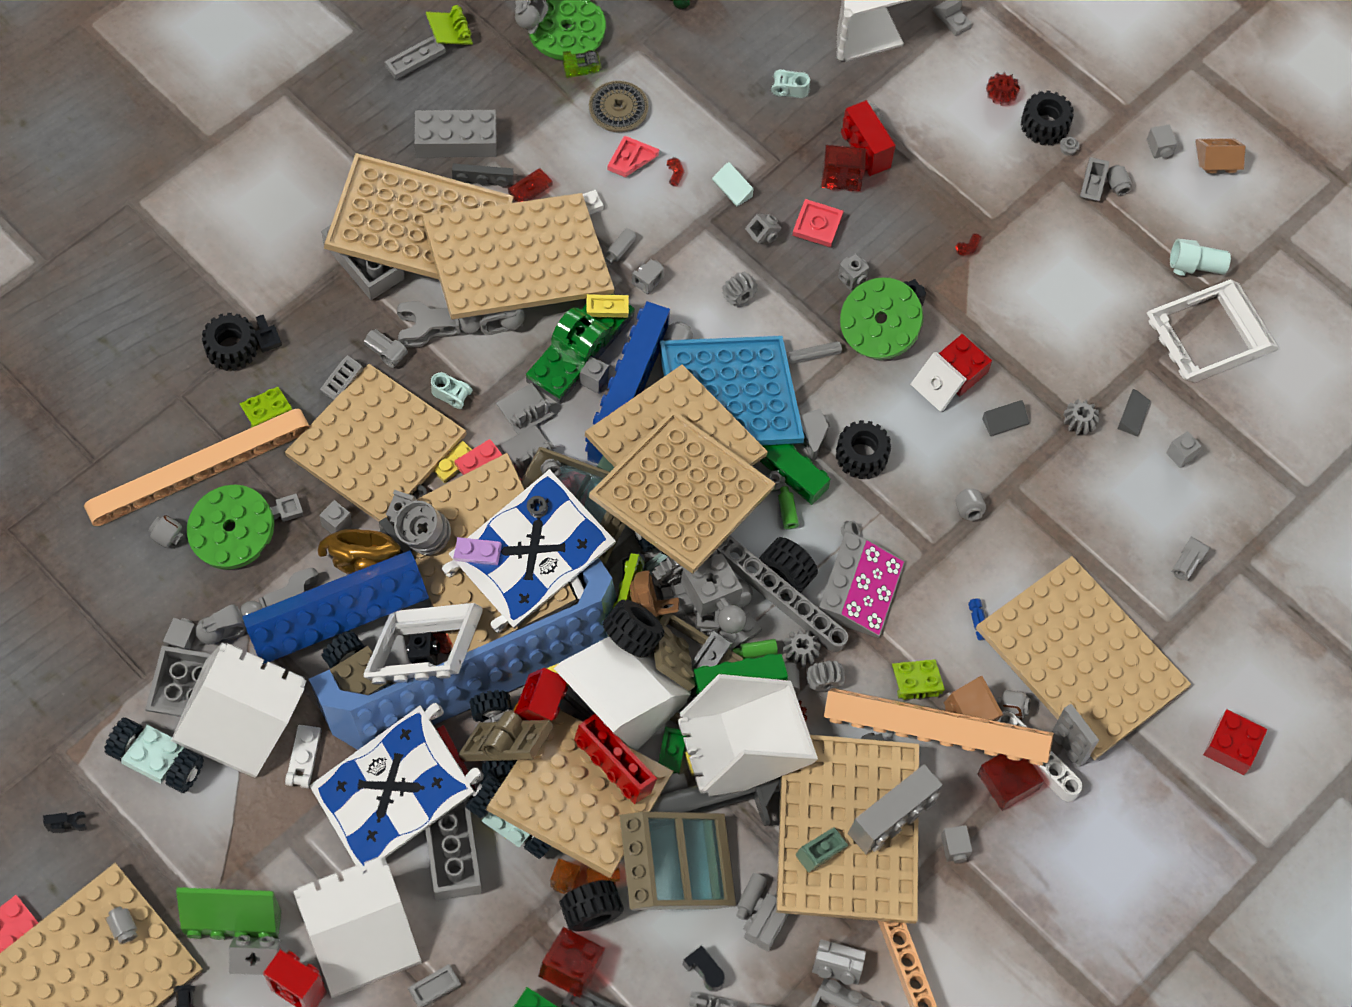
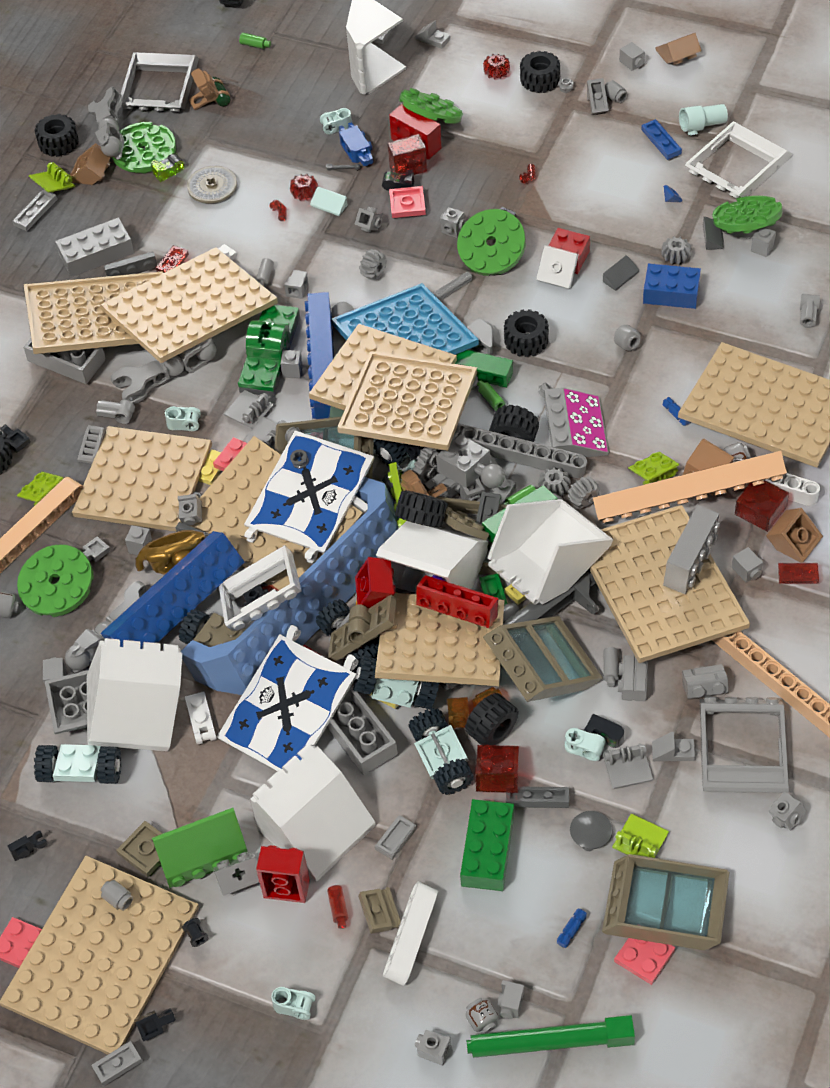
camera: 15 degrees left, 10 degrees down
(178, 872) = (140, 849): none -> dark tan plate
(415, 520) = (214, 512): light grey wheel -> none
(477, 551) = (267, 511): lavender plate -> none
(497, 27) = (90, 166): none -> medium nougat slope
(524, 914) = (441, 751): none -> plate
(607, 305) = (278, 310): light yellow plate -> none
(631, 156) = (240, 212): coral wing -> none
(680, 977) = (585, 744): none -> light aqua piece
(714, 154) = (303, 187): none -> clear red gear
(756, 139) = (329, 166): none -> dark grey hinge
(796, 124) = (355, 144): none -> hinge
(821, 191) = (398, 180): none -> black leg
(821, 849) = (649, 603): sand green slope -> none
(900, 114) = (430, 106): none -> bright green plate
(1006, 878) = (798, 573): none -> clear red plate
(1026, 831) = (794, 534): none -> medium nougat slope
(1052, 461) = (671, 286): none -> blue brick
(1074, 735) = (796, 450): light grey plate -> none
(1114, 342) = (671, 195): none -> blue slope
(1139, 265) = (661, 139): none -> blue plate
(1199, 407) = (747, 214): none -> bright green plate

